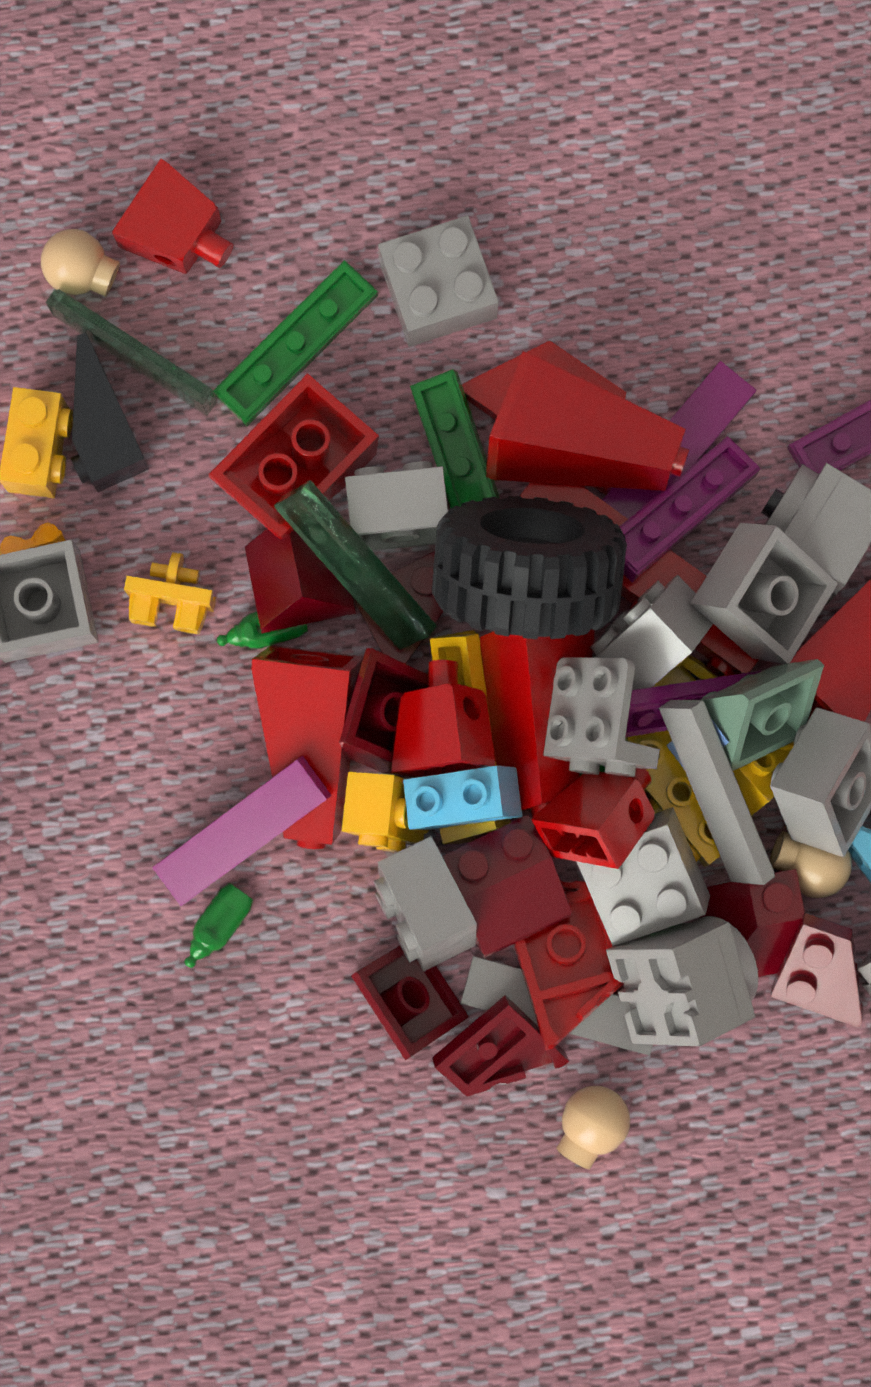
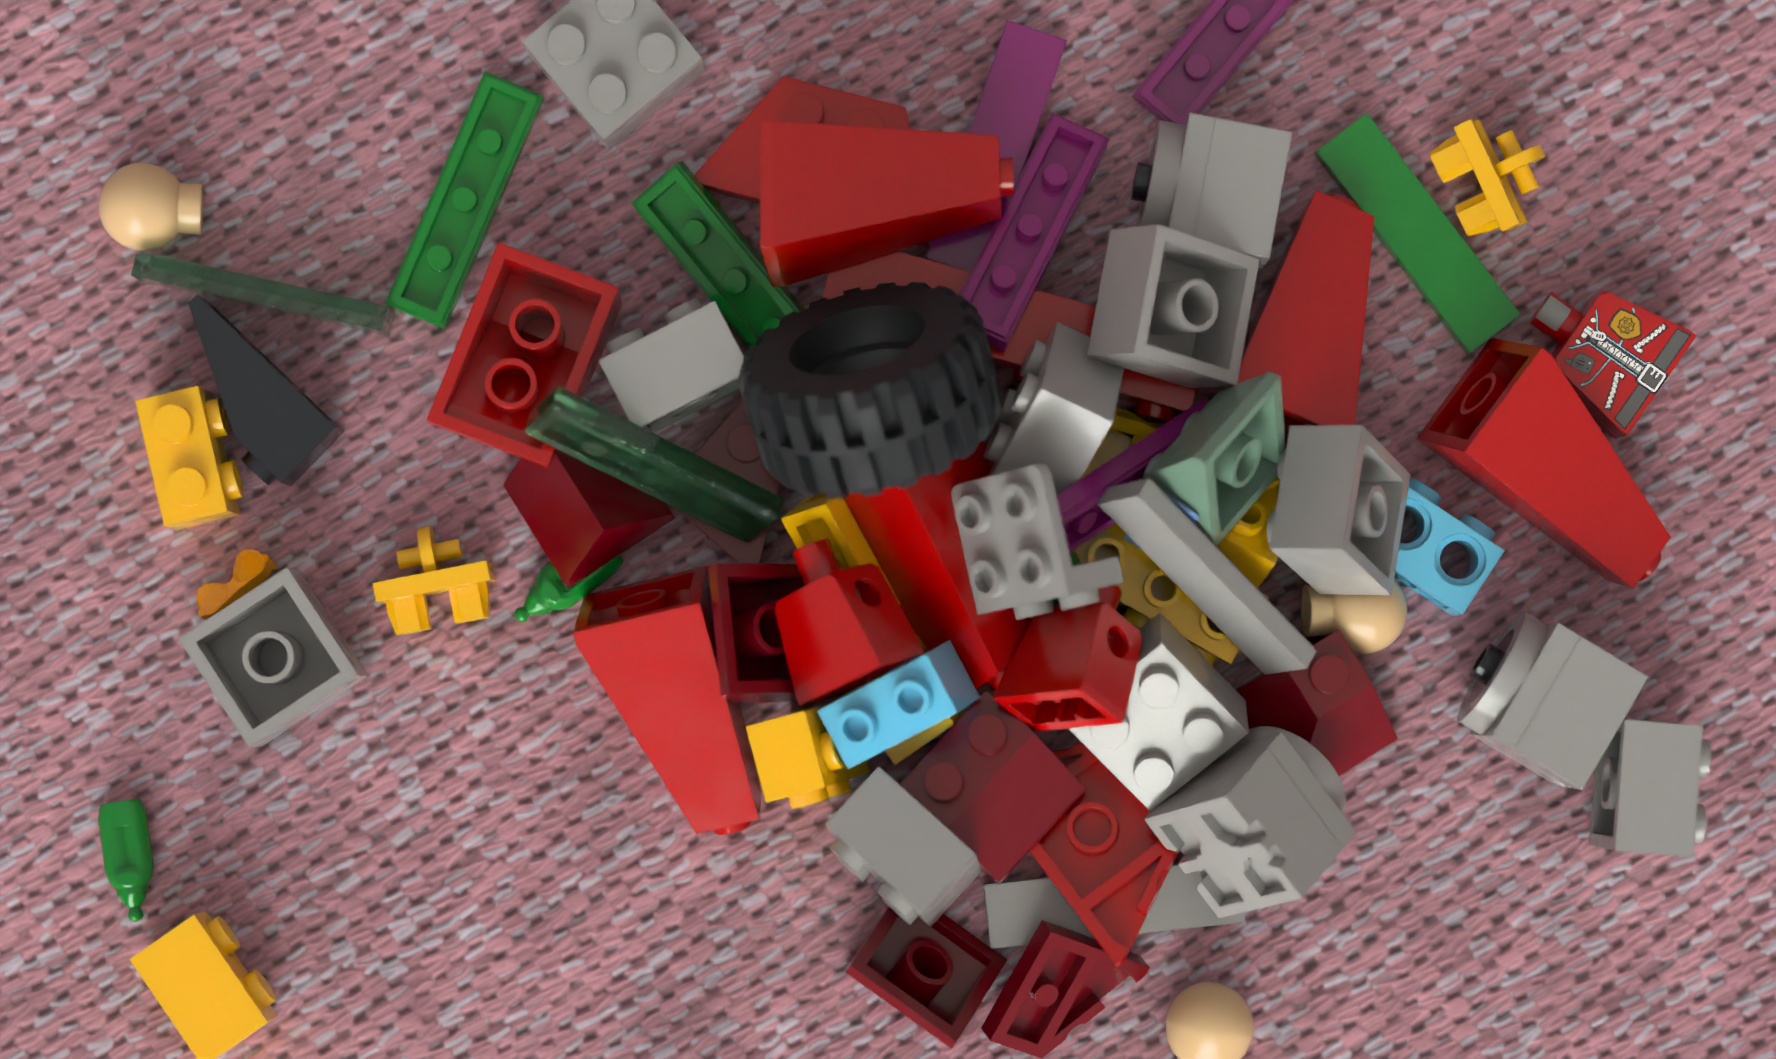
camera: 25 degrees left, 5 degrees up
(172, 223) = (249, 108): red torso -> none
(218, 922) = (655, 964): green piece -> none
(242, 831) = (641, 845): magenta tile -> none
(821, 971) = (1415, 741): wing -> none

